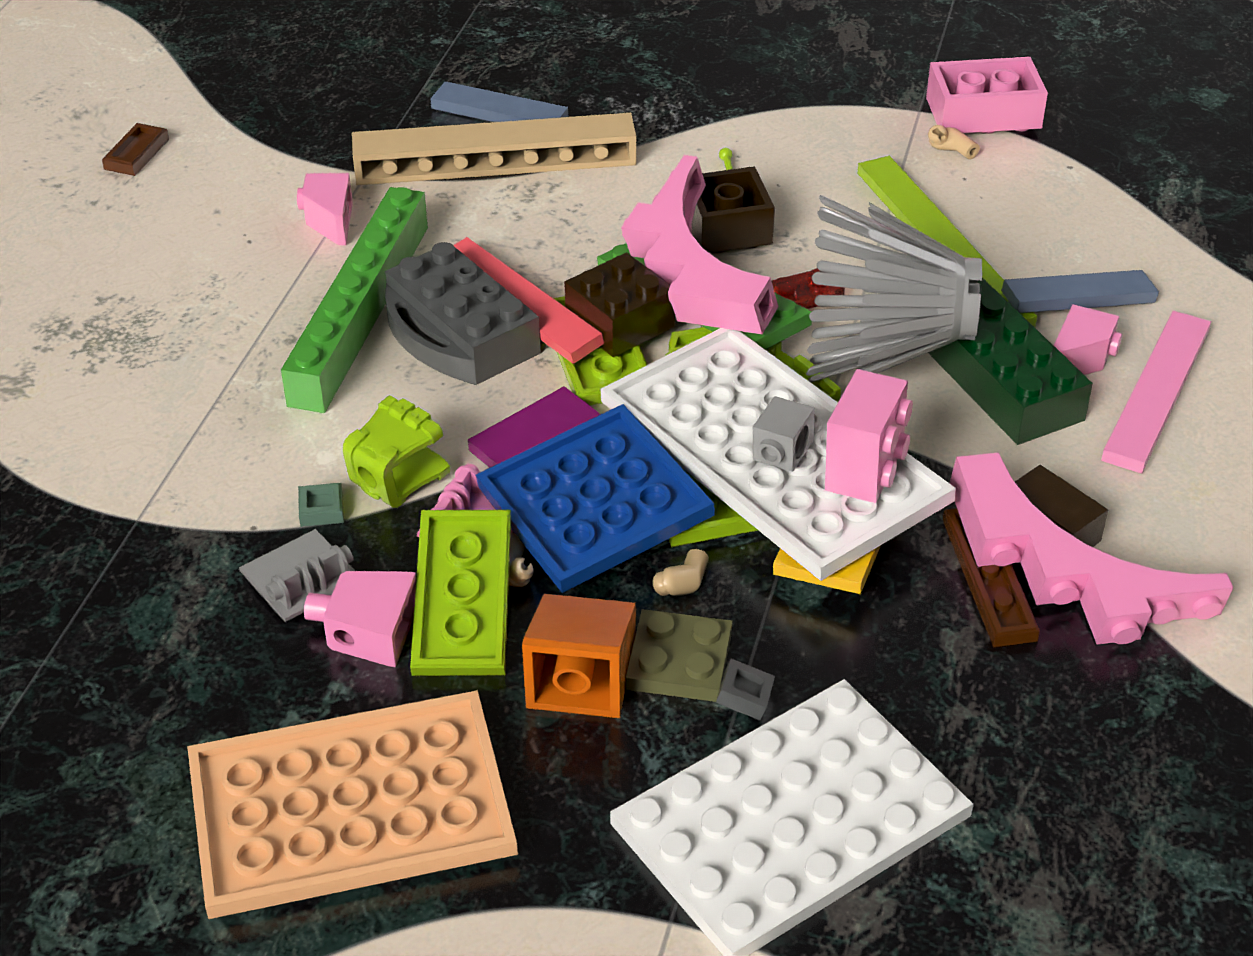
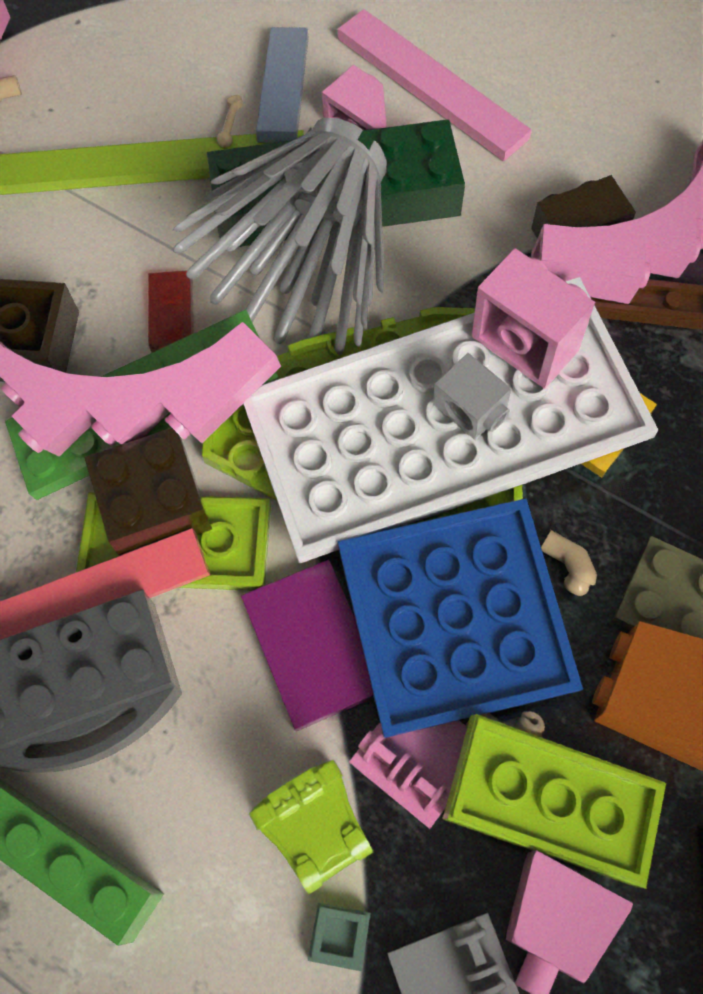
camera: 70 degrees left, 25 degrees up
(990, 269) = (224, 138): none -> tan hinge

